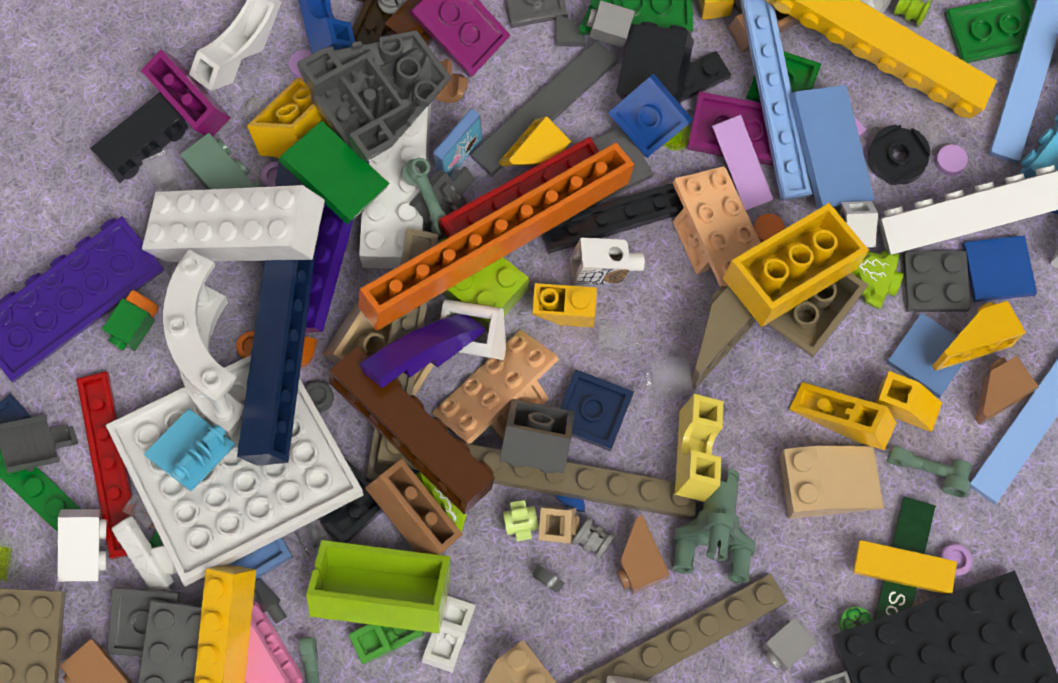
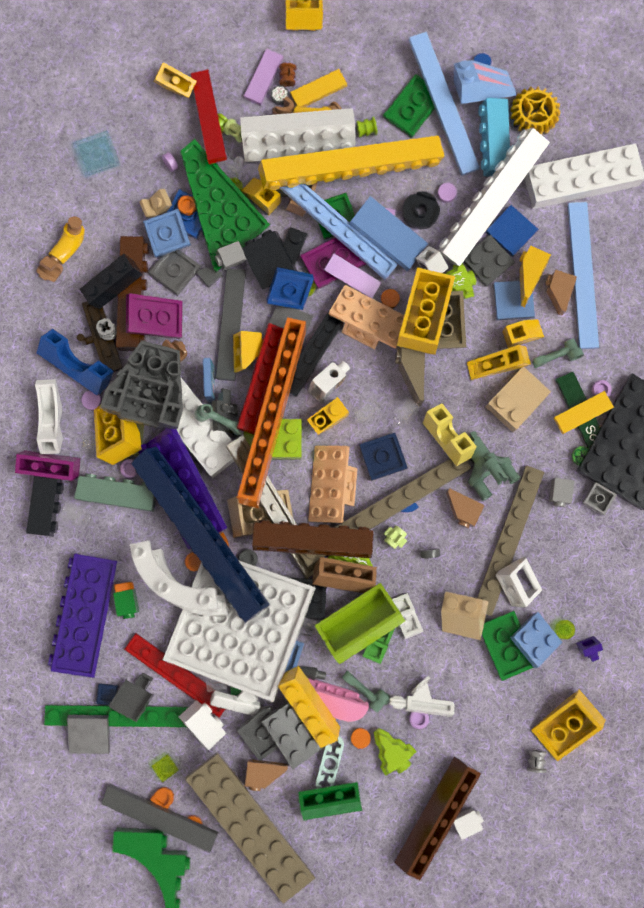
camera: 45 degrees left, 10 degrees up
(190, 449) = (216, 637): medium azure hinge -> none
(235, 224) = (139, 513): white brick -> none
(334, 172) = (165, 446): green tile -> none
(426, 345) = (284, 497): dark purple slope -> none
(496, 340) = (298, 477): white tile -> none
(537, 436) = (373, 492): dark grey brick -> none
(558, 524) = (415, 524): tan brick -> none
(593, 538) = (435, 517): light grey bush -> none

